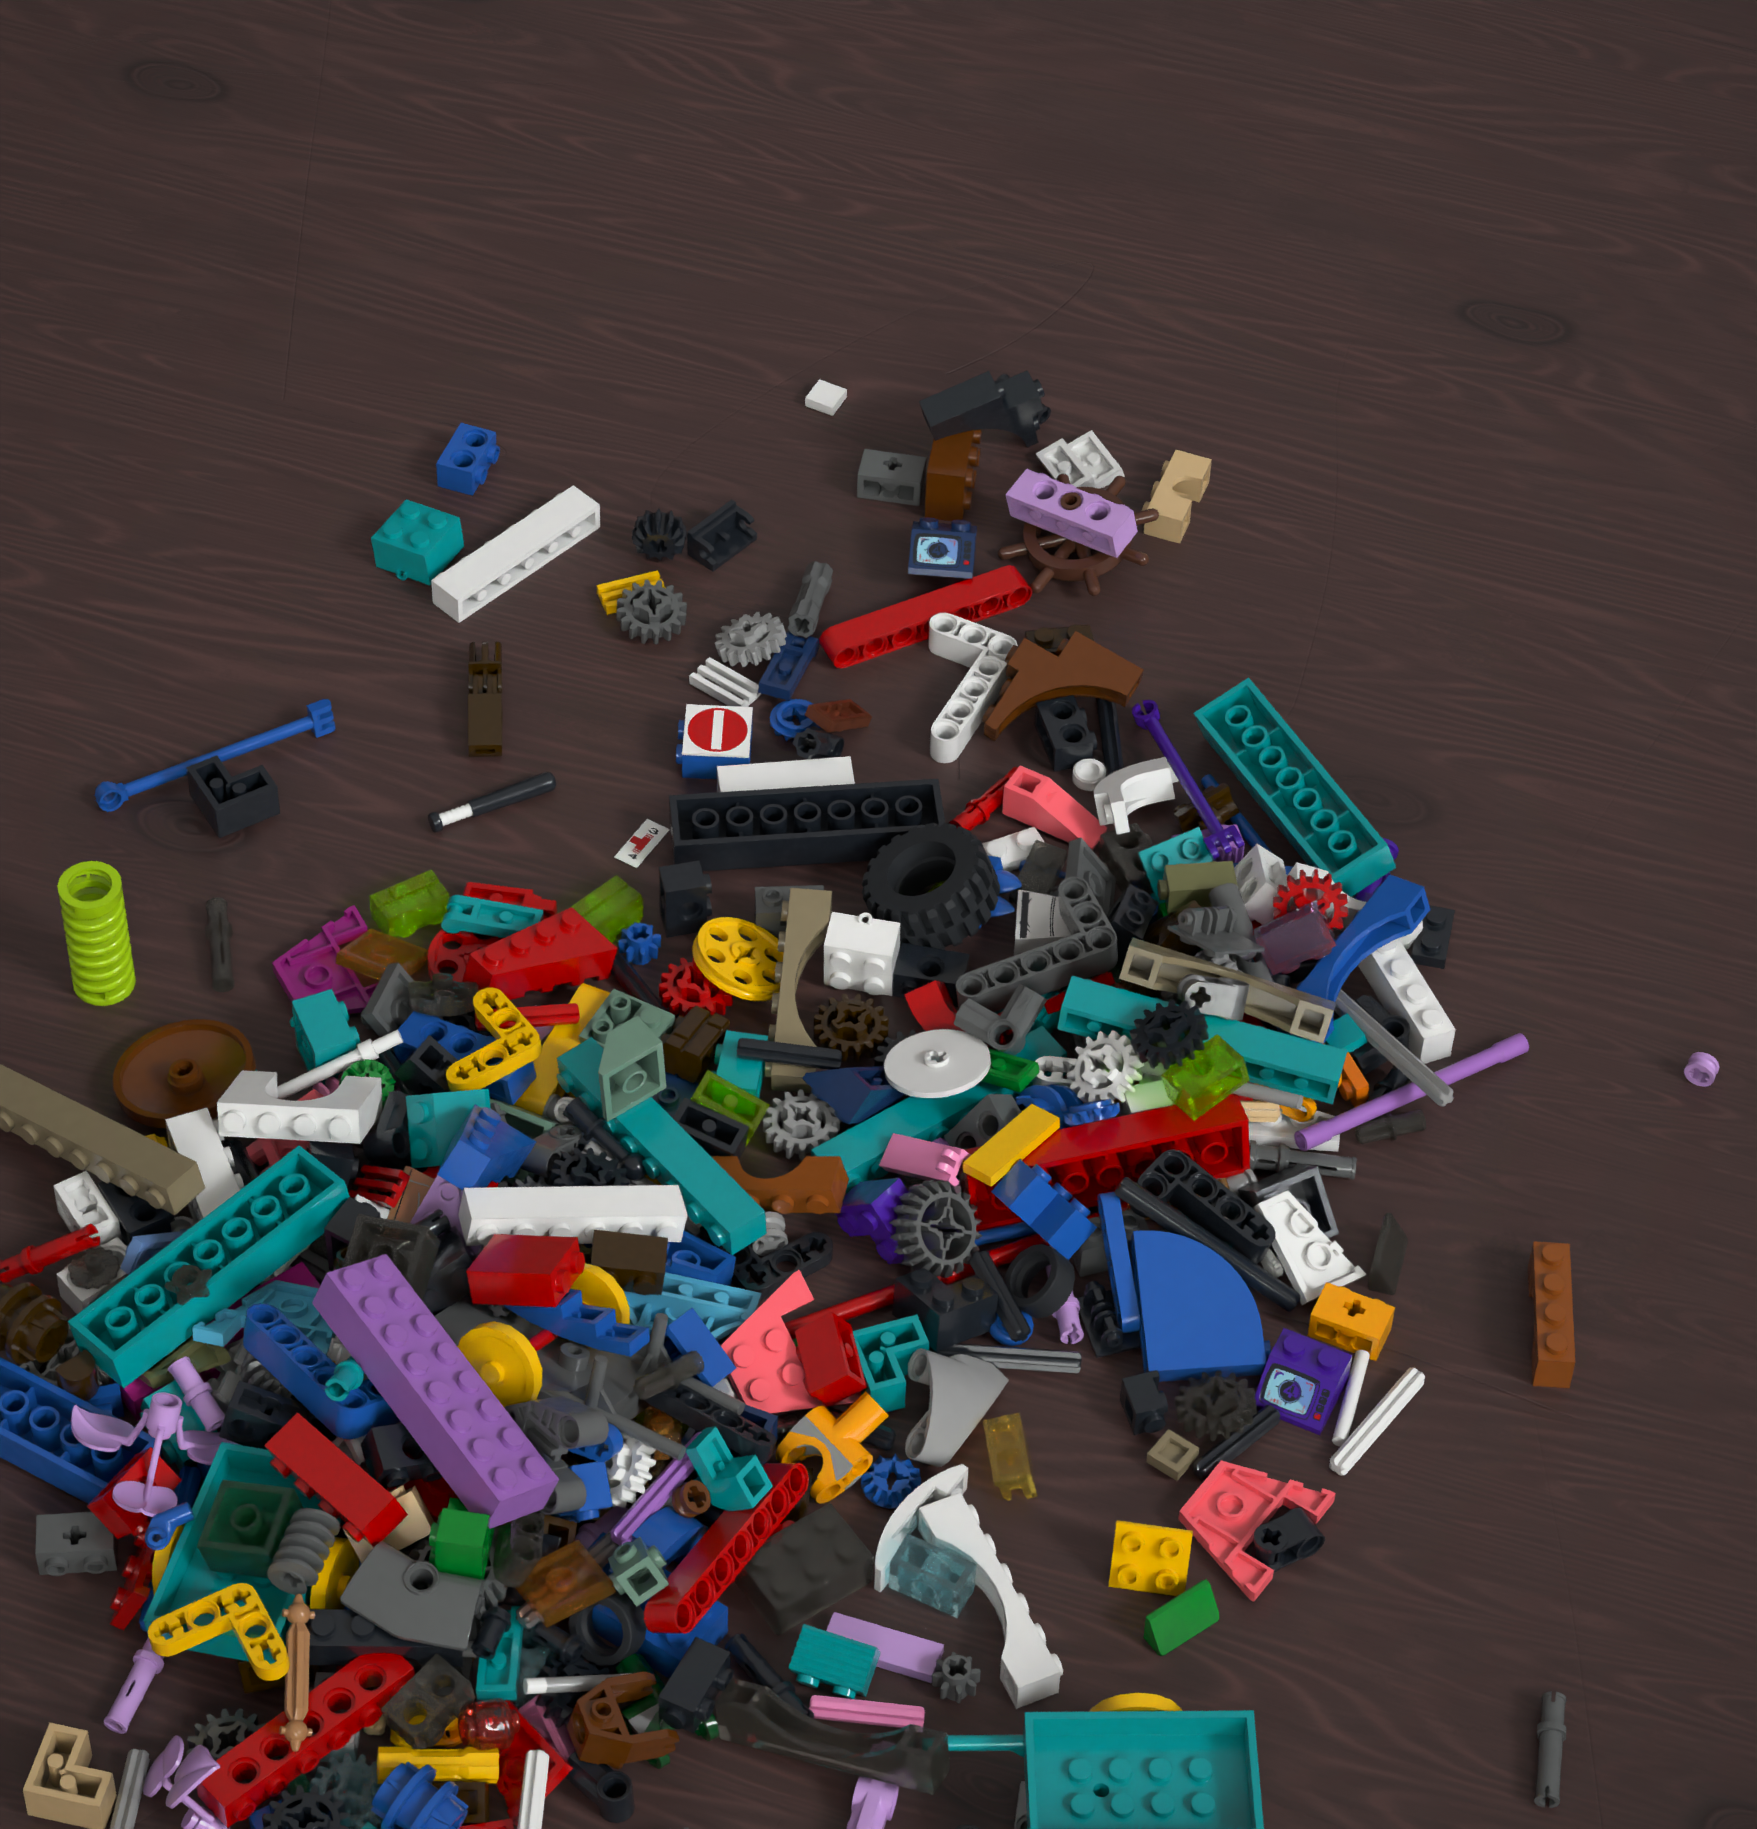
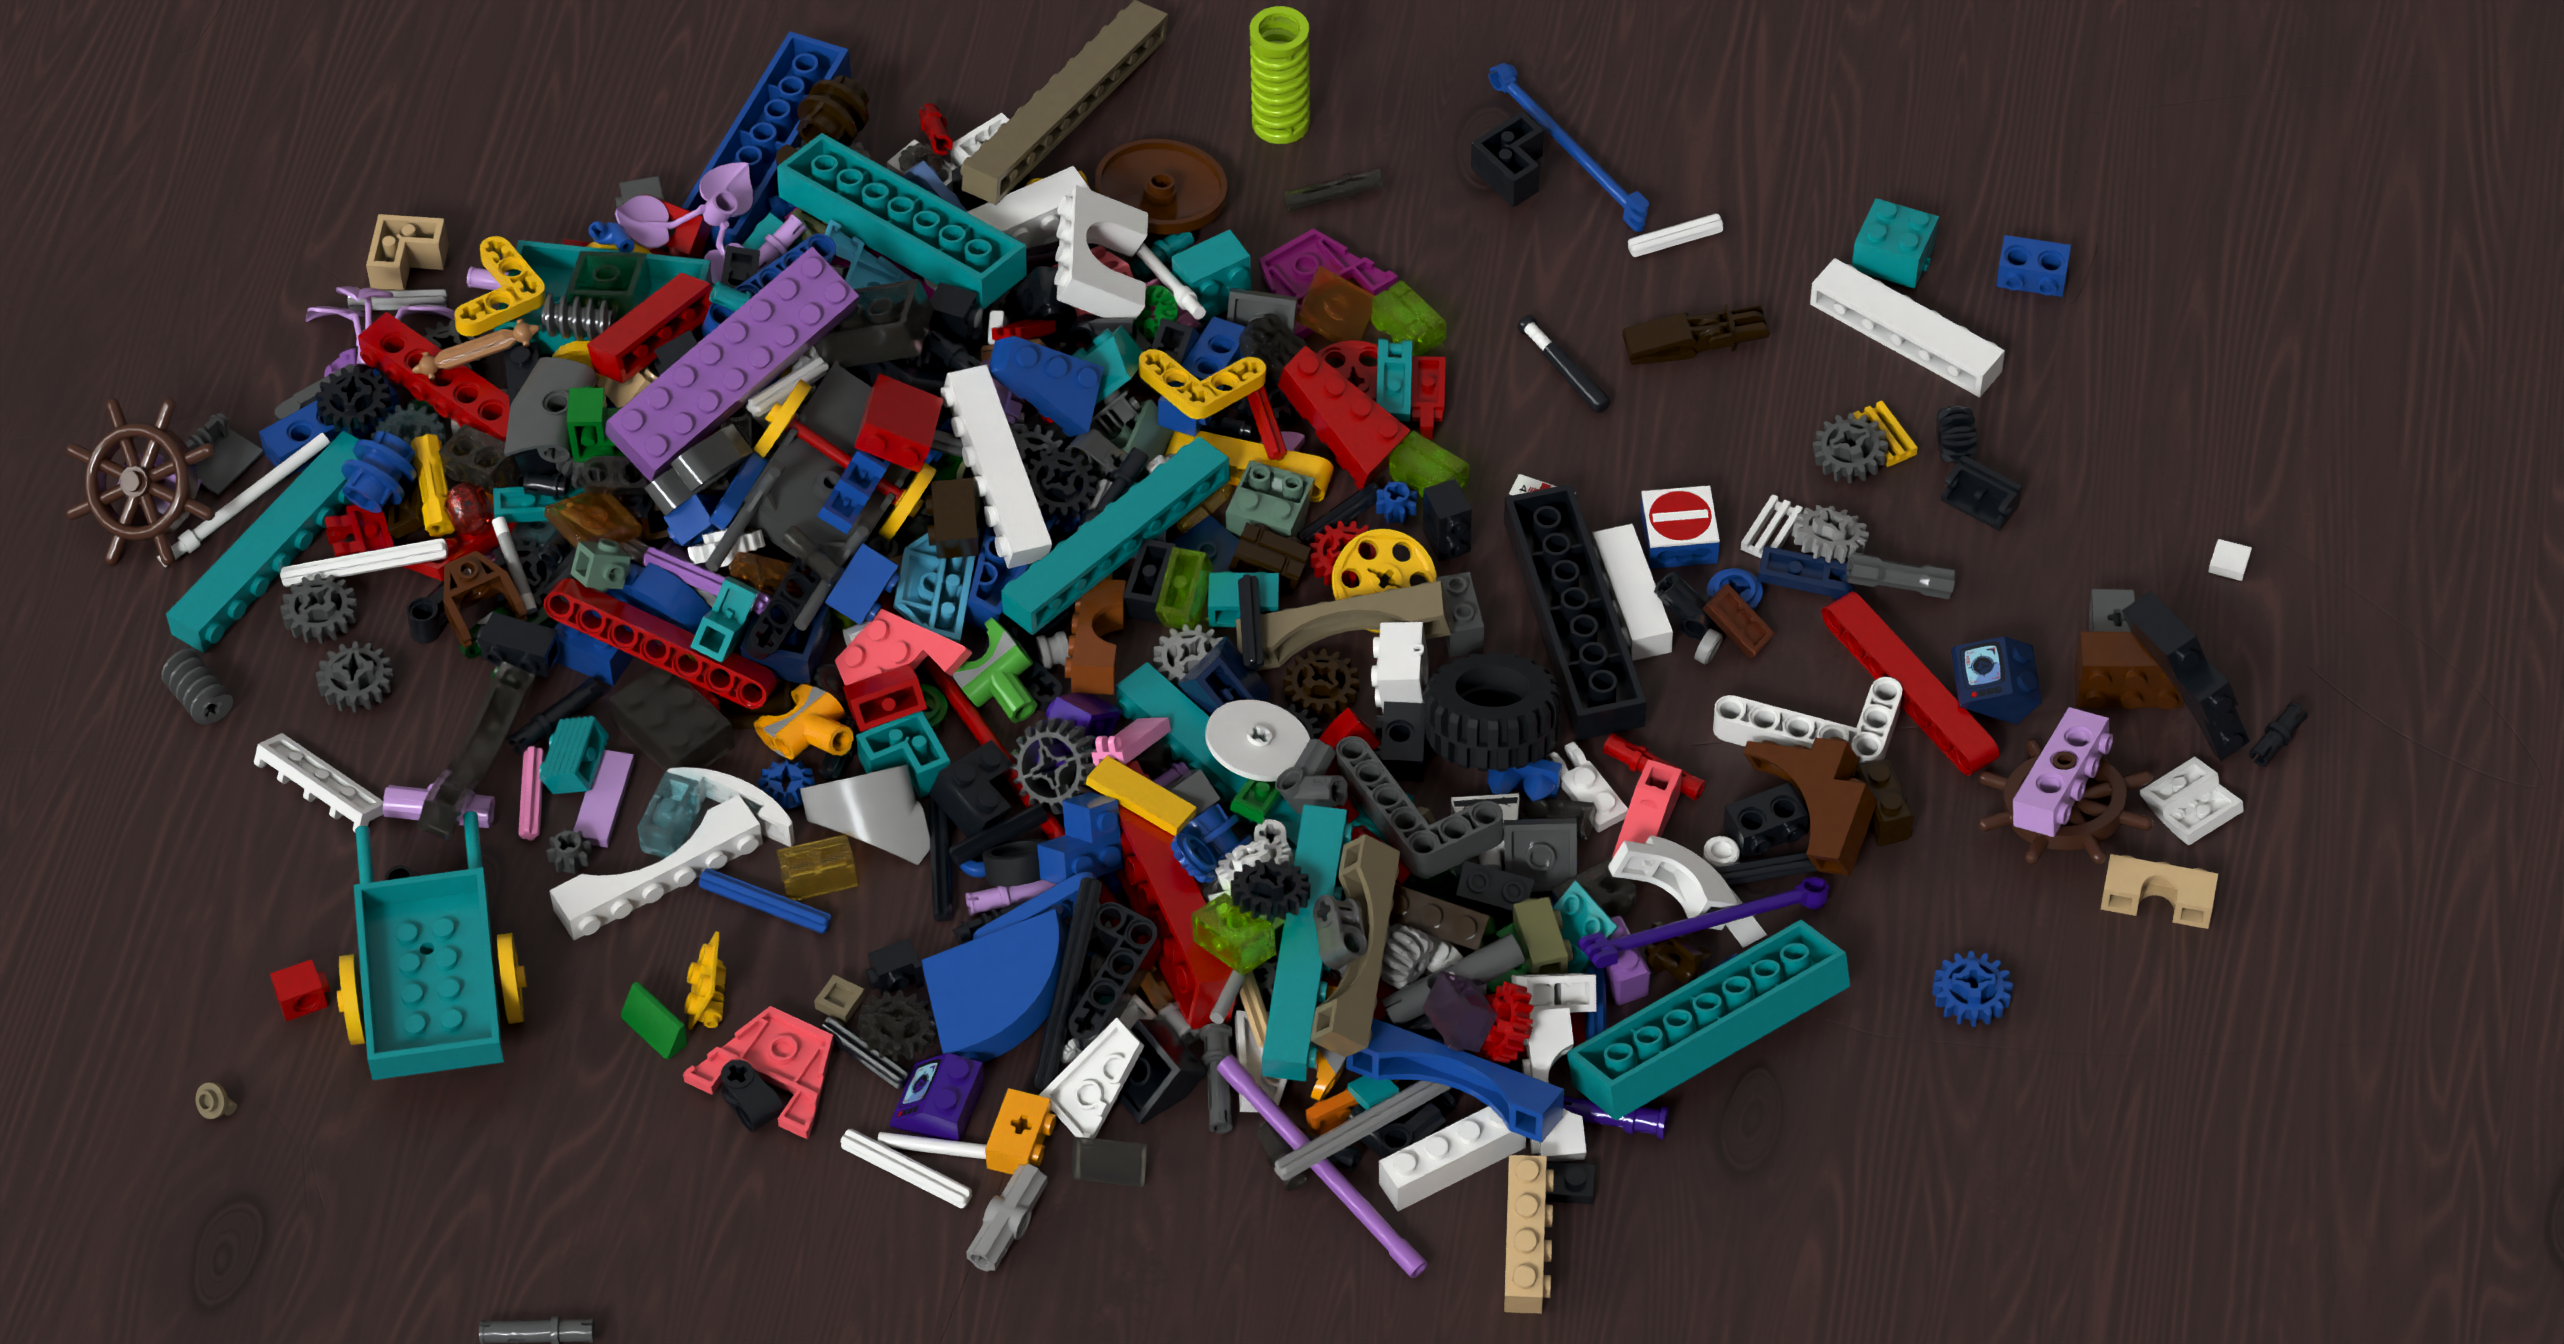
camera: 85 degrees right, 5 degrees up
(186, 1275) = (859, 196): clear smoke plate -> none
(352, 699) = (1675, 235): none -> white axle
(630, 1067) = (1163, 471): sand green slope -> none
(691, 1489) = (689, 602): reddish brown bush -> none
(789, 1256) = (998, 675): none -> bright green connector
(859, 744) = (1708, 646): none -> light grey tile
(1040, 1510) = (765, 901): none -> blue axle
(1212, 931) = (1433, 933): dark grey hinge -> none
(1264, 628) = (1972, 988): none -> blue gear
(1445, 1341) = (1007, 1217): none -> light grey piece
(1504, 951) = (1525, 1234): none -> tan brick
(1553, 1314) = (1089, 1299): dark orange arch -> none

